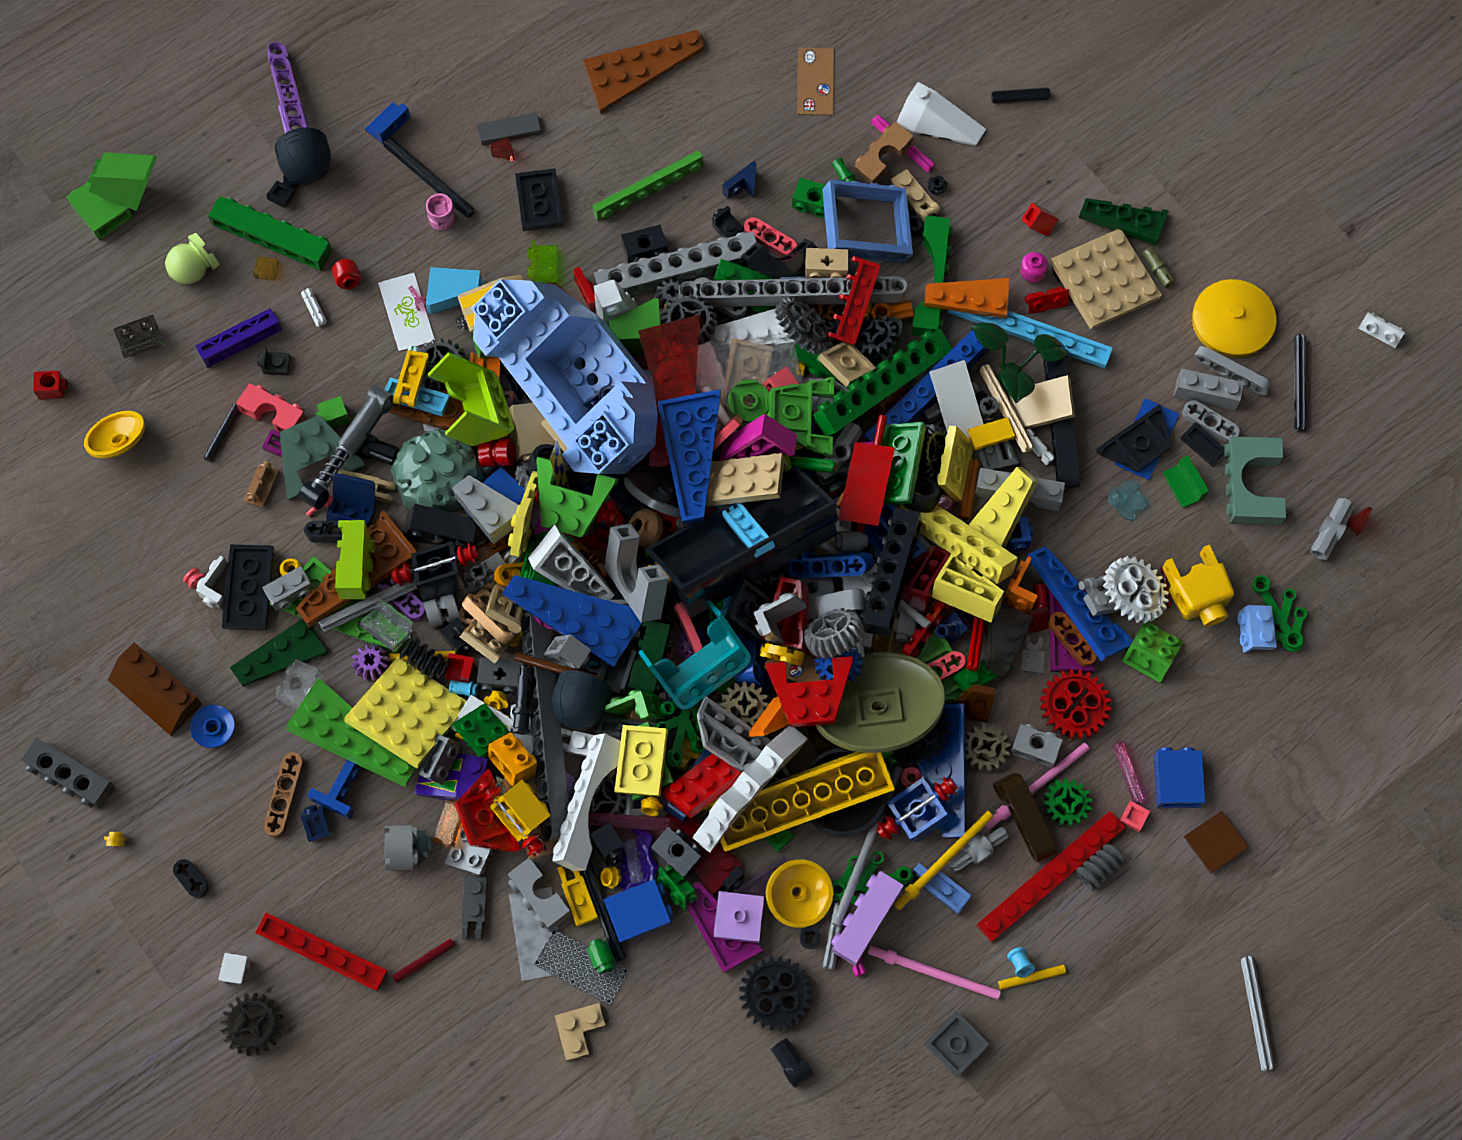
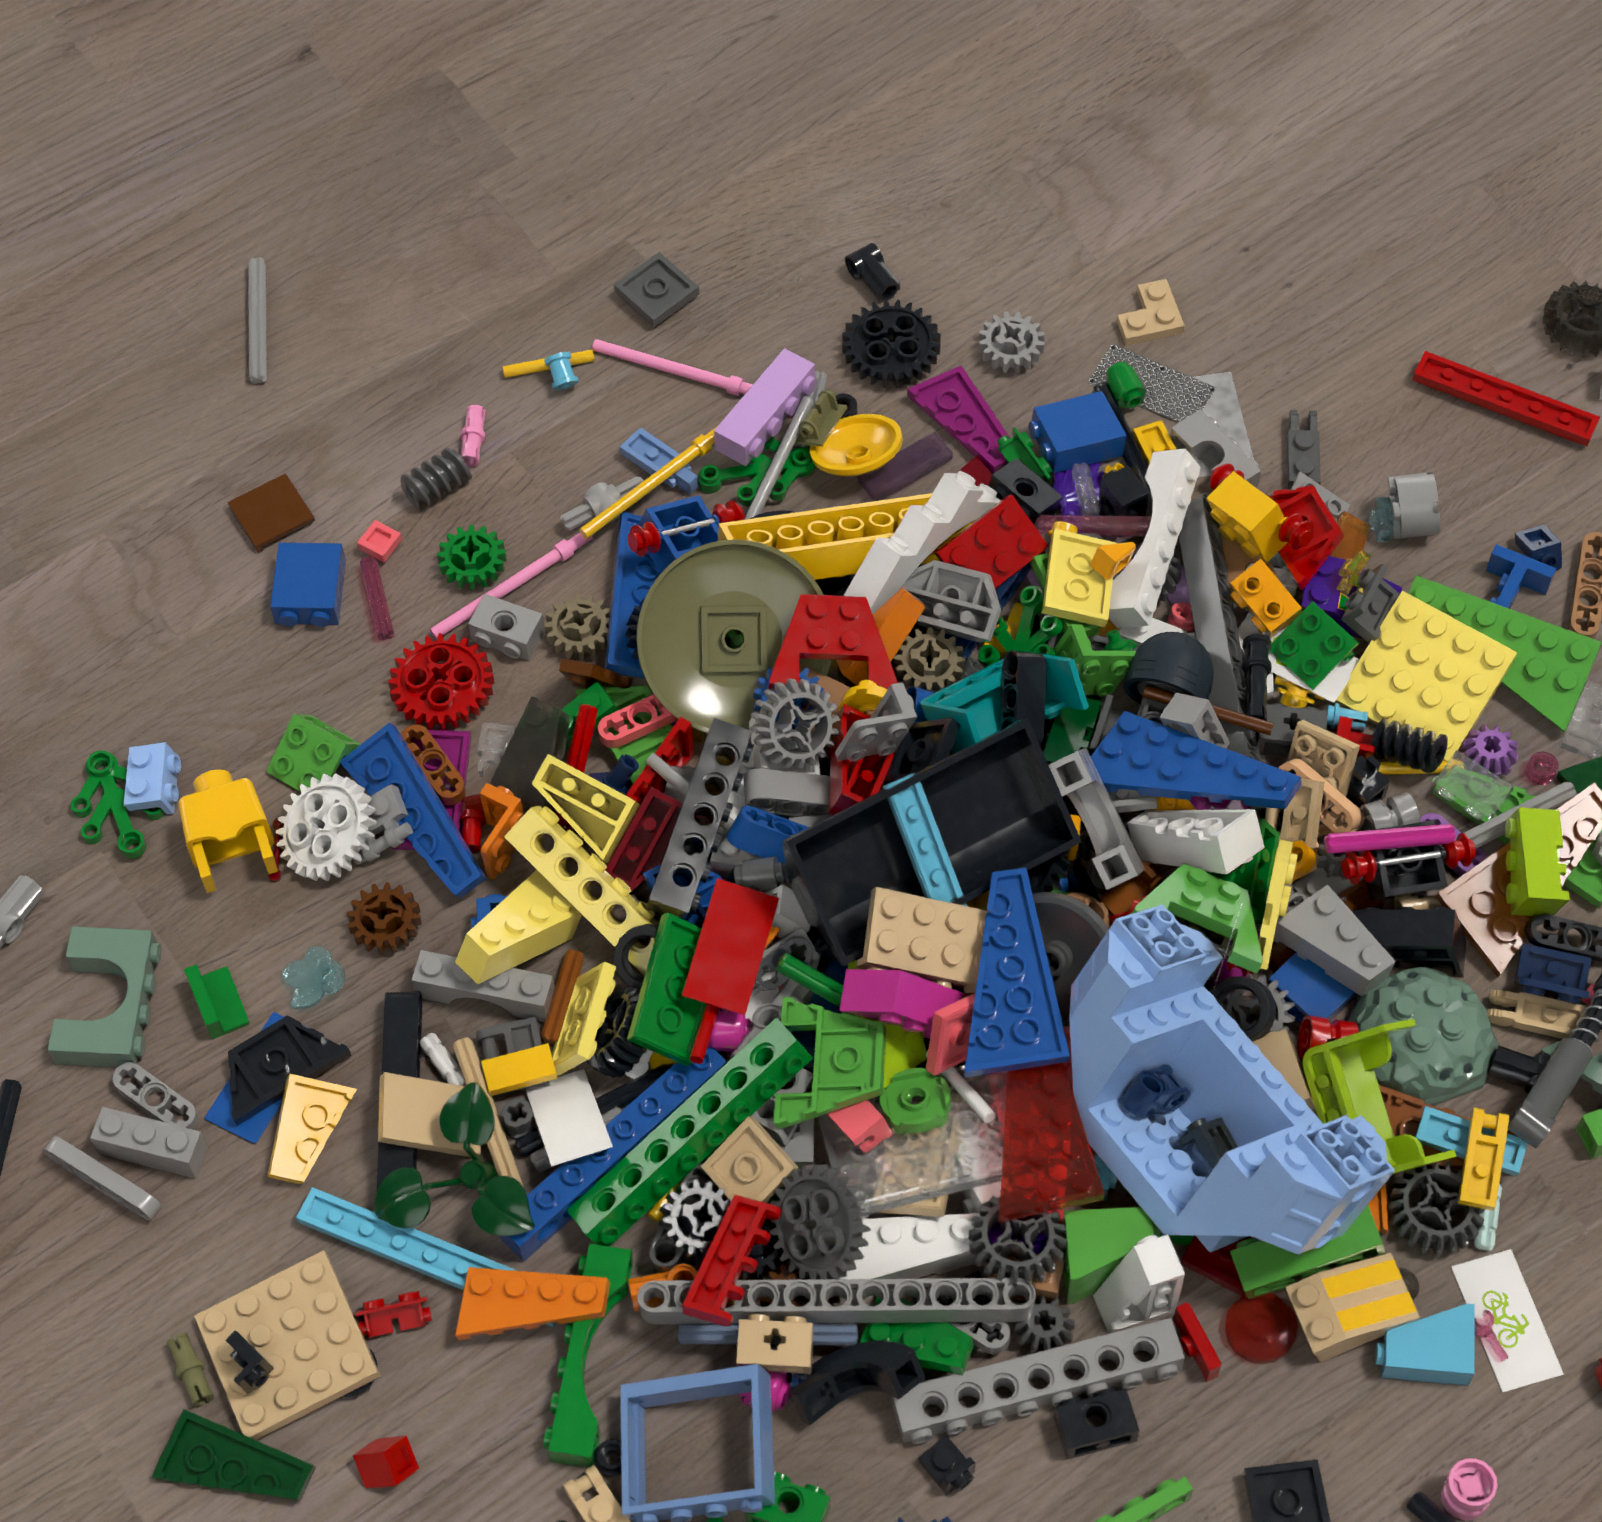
camera: 175 degrees left, 10 degrees down
(336, 648) = (1545, 760): none -> clear pink bush
(423, 960) = (1365, 392): dark red bar -> none
(447, 565) = (1389, 838): none -> dark pink axle
(450, 777) = (1352, 570): none -> clear yellow plate
(543, 263) = (1274, 1396): clear neon green bracket -> none
(572, 375) = (1211, 1138): none -> pearl dark grey bracket
(575, 759) = (1181, 617): none -> coral bush
(615, 720) = (1117, 643): none -> green plant
(616, 766) = (1112, 558): none -> light orange slope
(676, 1001) = (1011, 342): none -> light grey gear
(681, 663) = (1024, 690): none -> black beam
(734, 880) = (950, 464): black plate -> none
(738, 917) = (940, 421): lavender plate -> none
(772, 246) = (898, 1445): coral beam -> none
(824, 914) = (820, 420): none -> olive hinge
(947, 503) = (604, 950): clear pink axle -> none
(1026, 815) = (536, 540): dark brown beam -> none
(1034, 267) = (409, 1363): dark pink head -> none
(1050, 876) = (506, 477): red plate -> none
(1080, 909) = (473, 435): none -> bright pink pin
(1097, 531) = (397, 922): none -> reddish brown gear
(1117, 403) = (305, 1122): none -> yellow wing
(1123, 259) = (254, 1365): none -> black bracket
(1203, 444) = (175, 1064): black tile -> none
(1234, 318) = (78, 1277): yellow dish -> none

